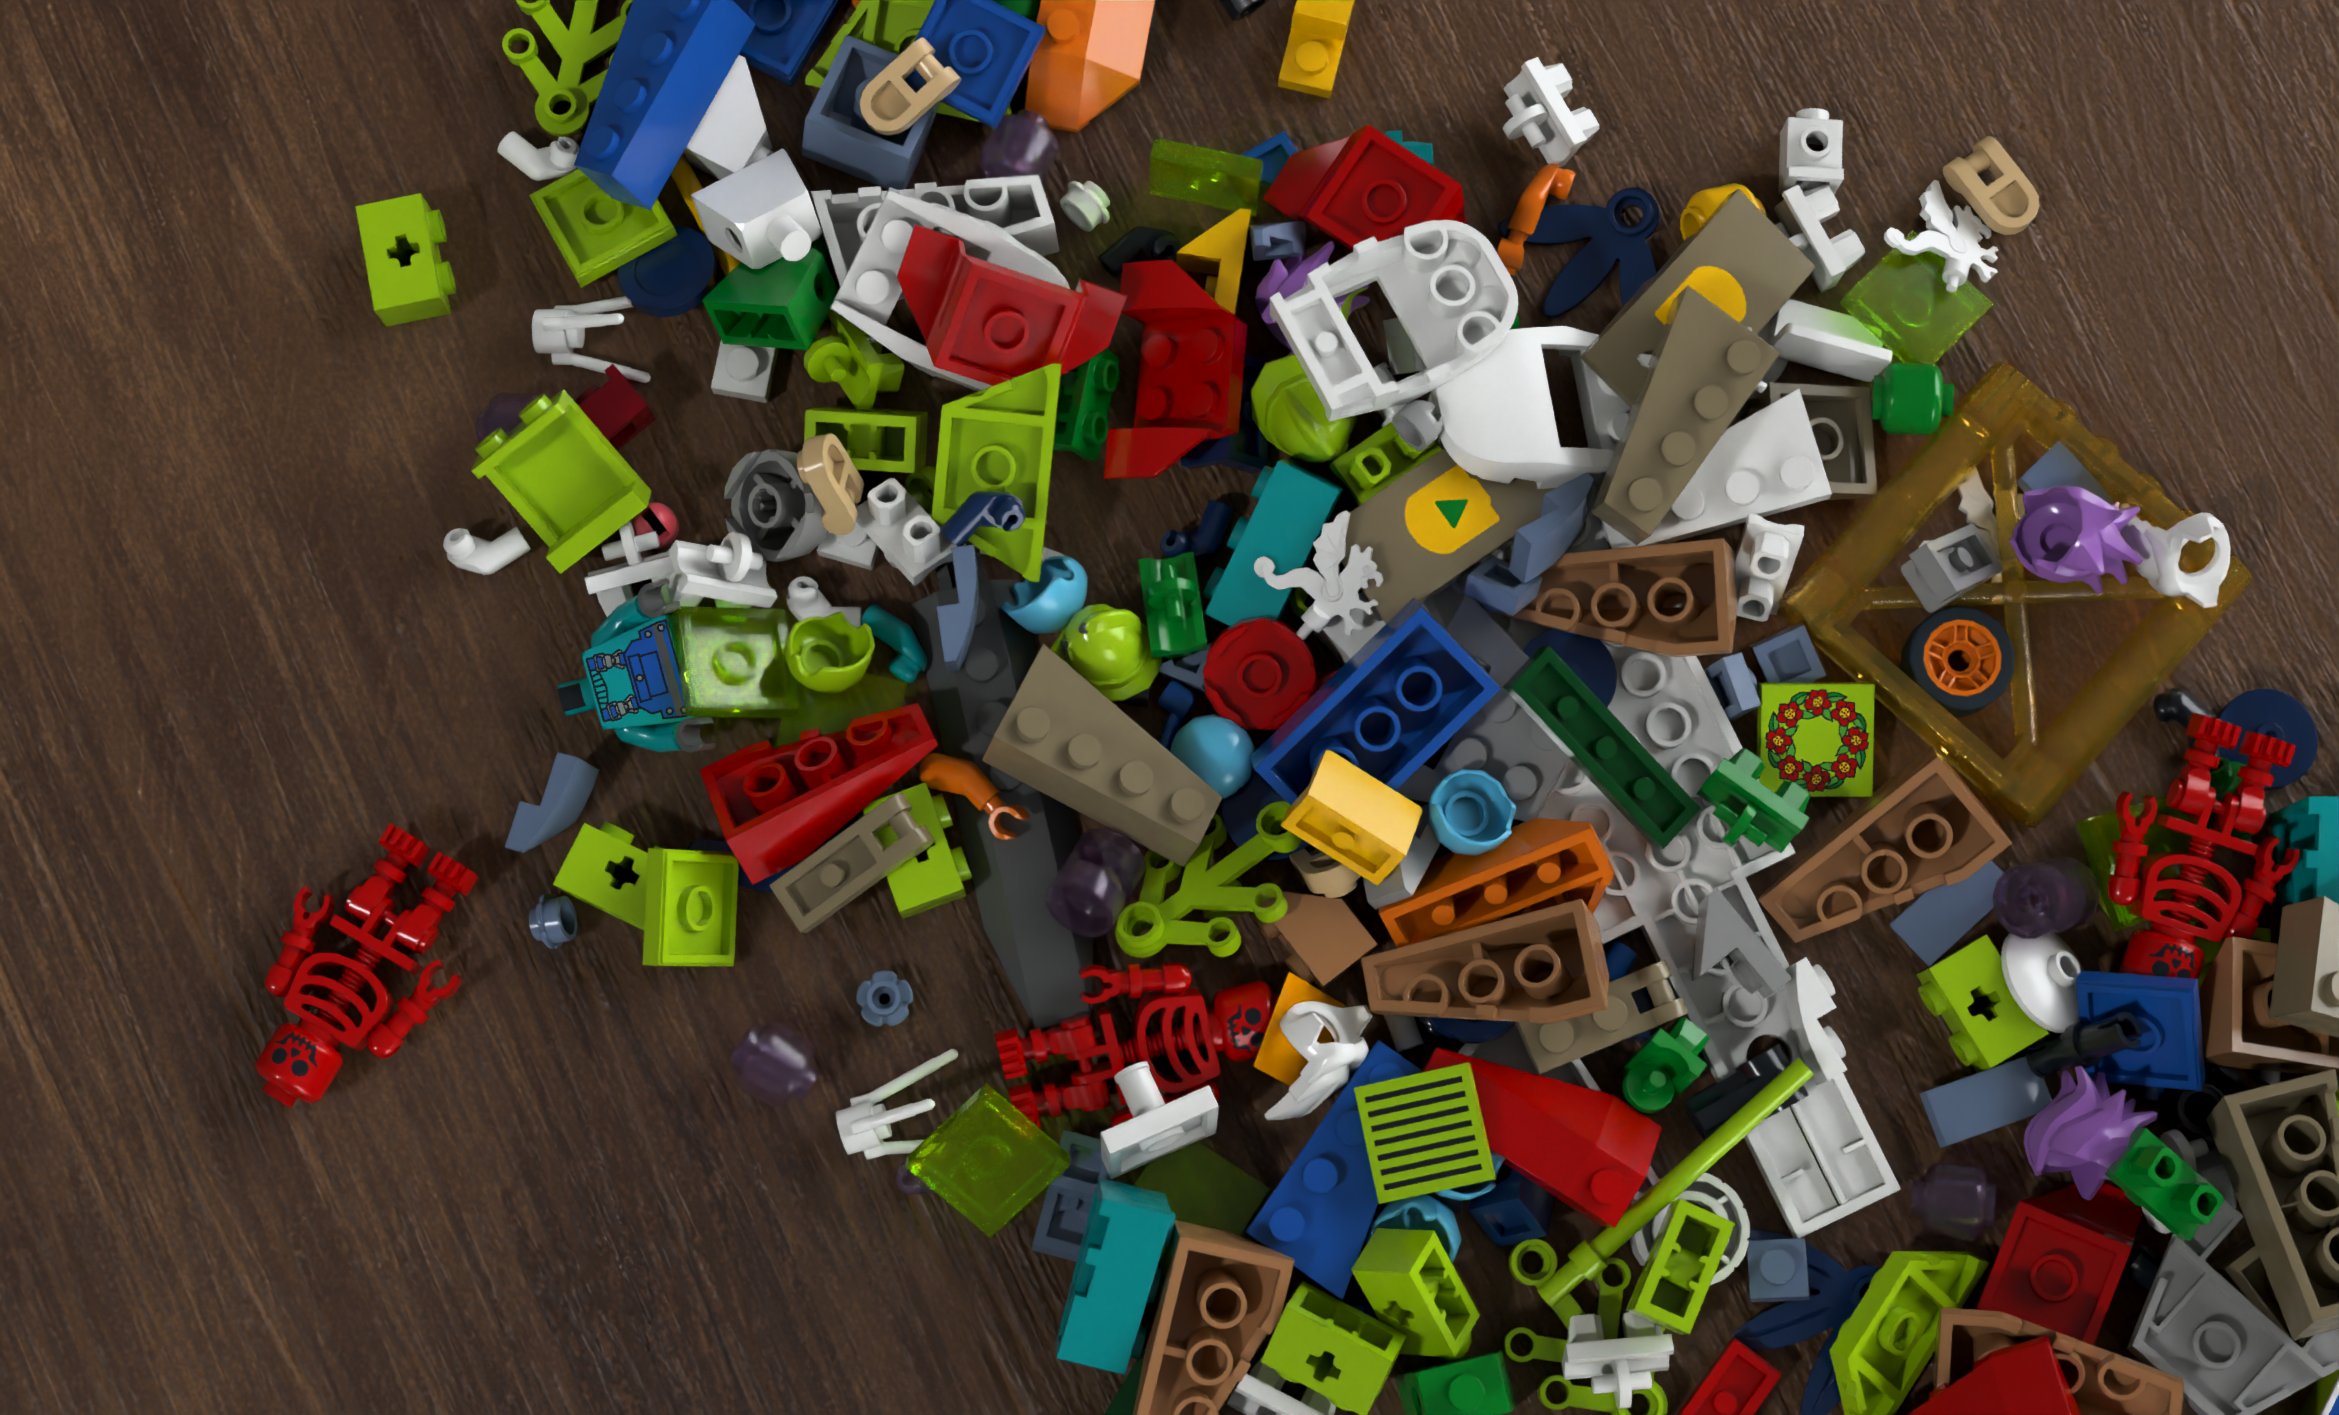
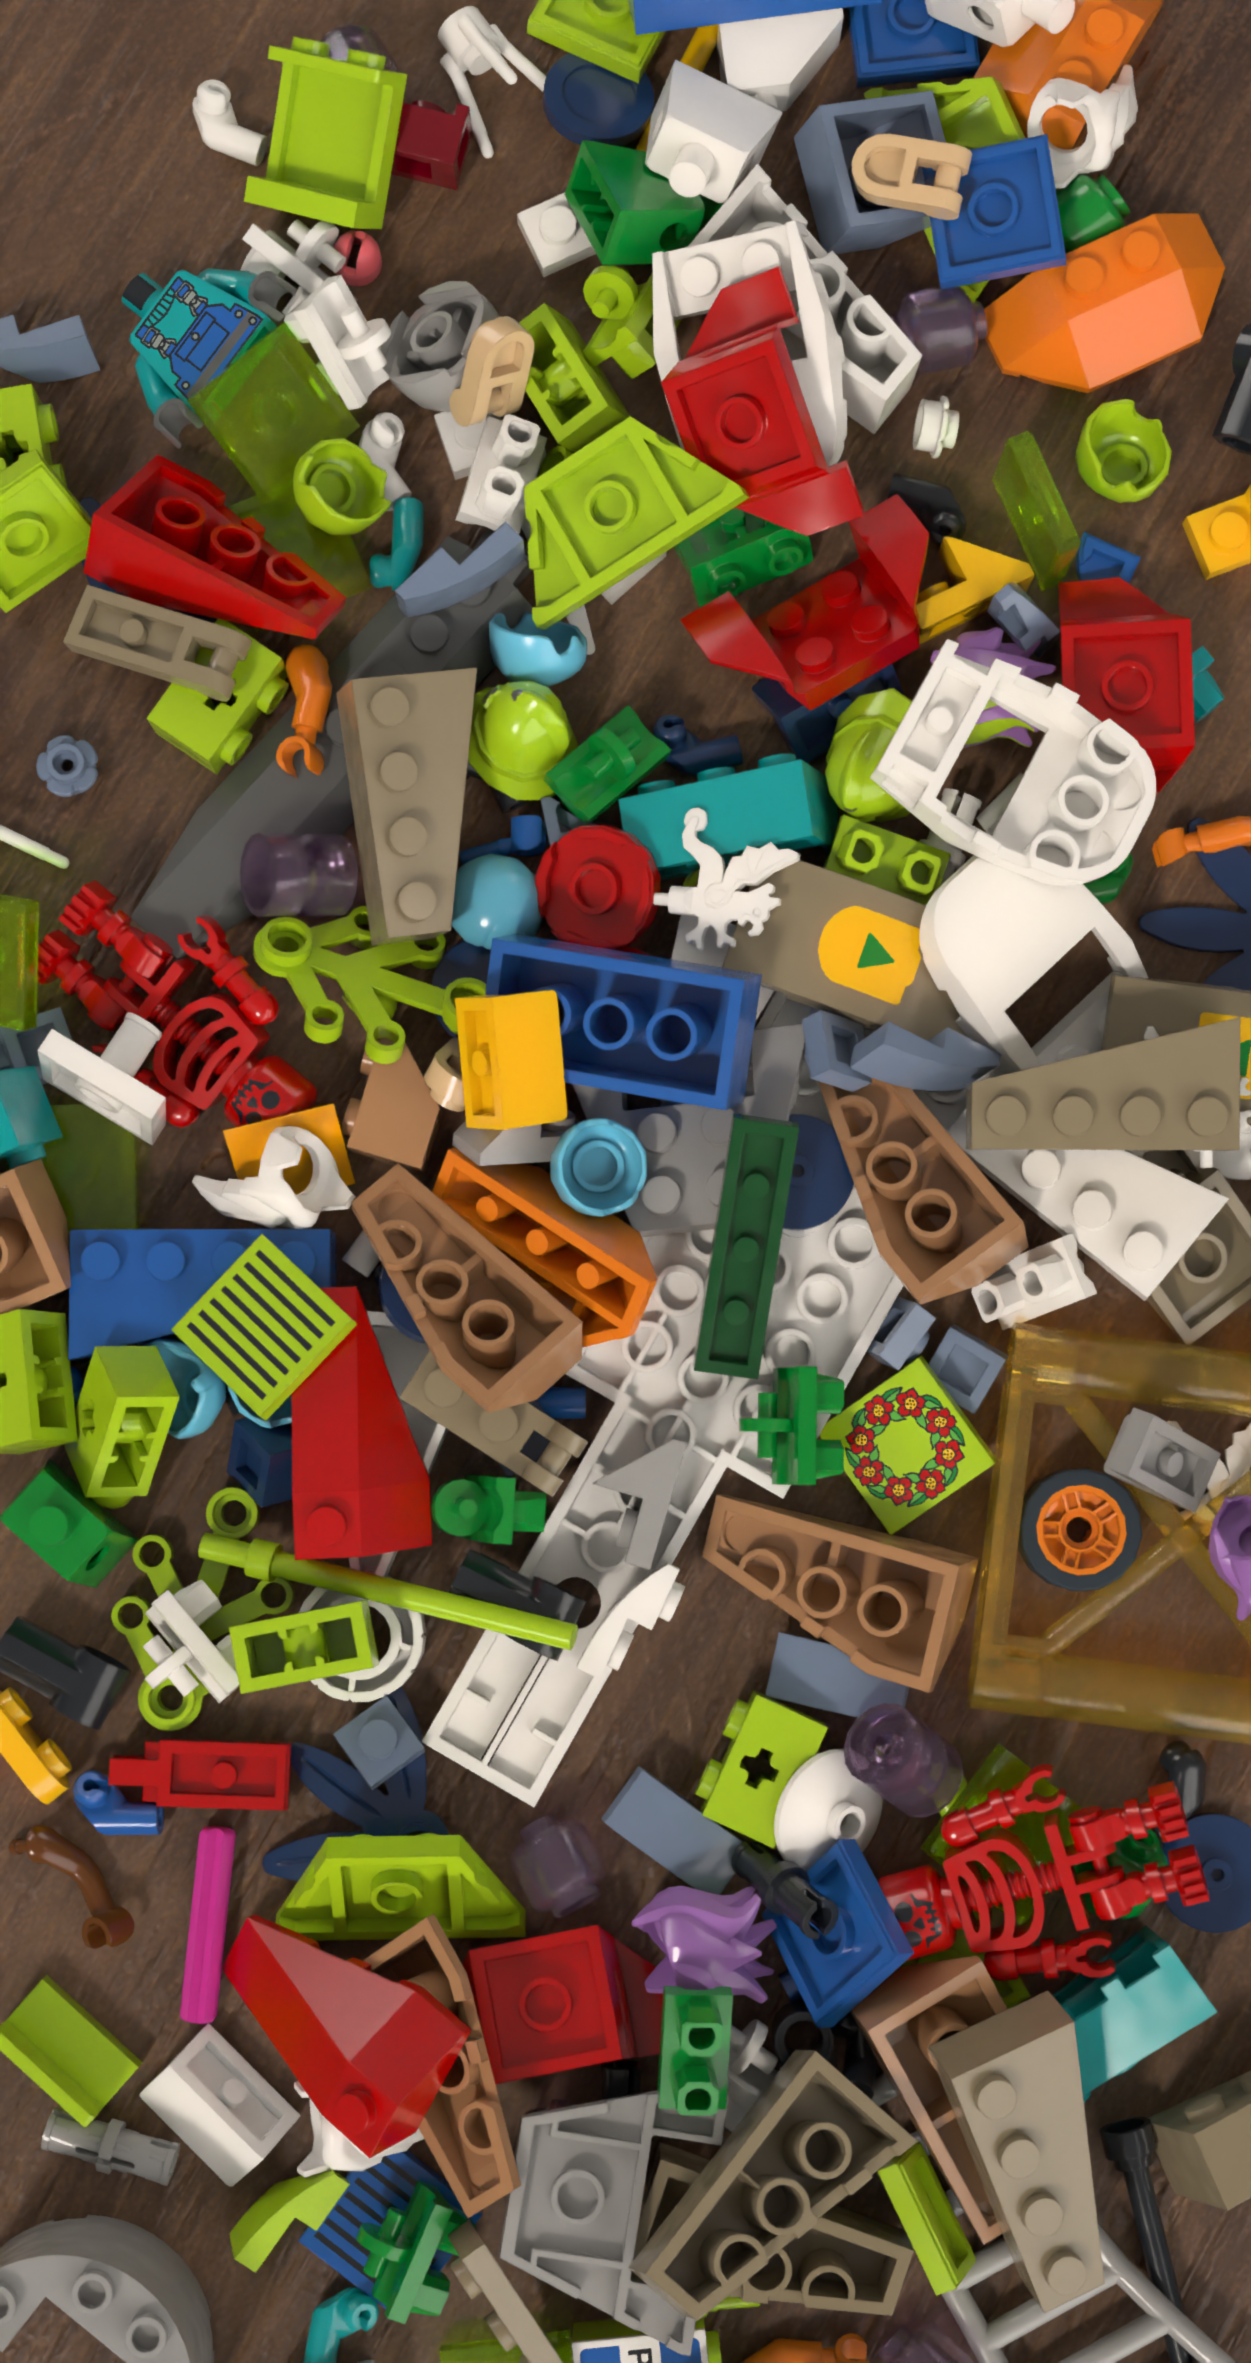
camera: 55 degrees right, 5 degrees up
(984, 510) = (562, 526): dark blue arm -> none
(1203, 89) = (1122, 452): none -> lime hair
(1417, 424) = (928, 863): light grey hinge -> none

